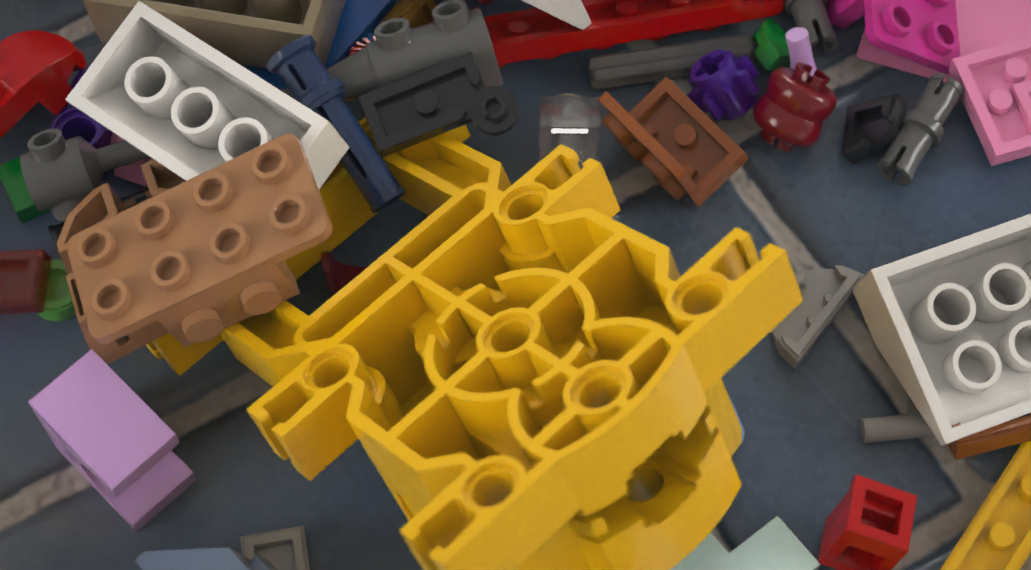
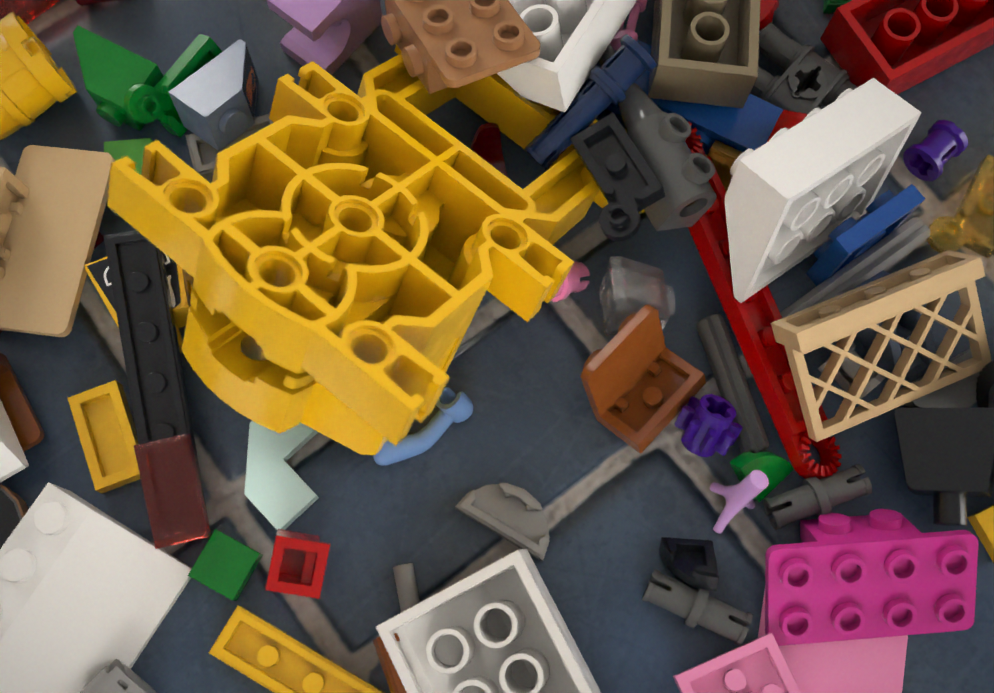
camera: 80 degrees right, 10 degrees up
(794, 106) = (694, 487): dark red piece -> none

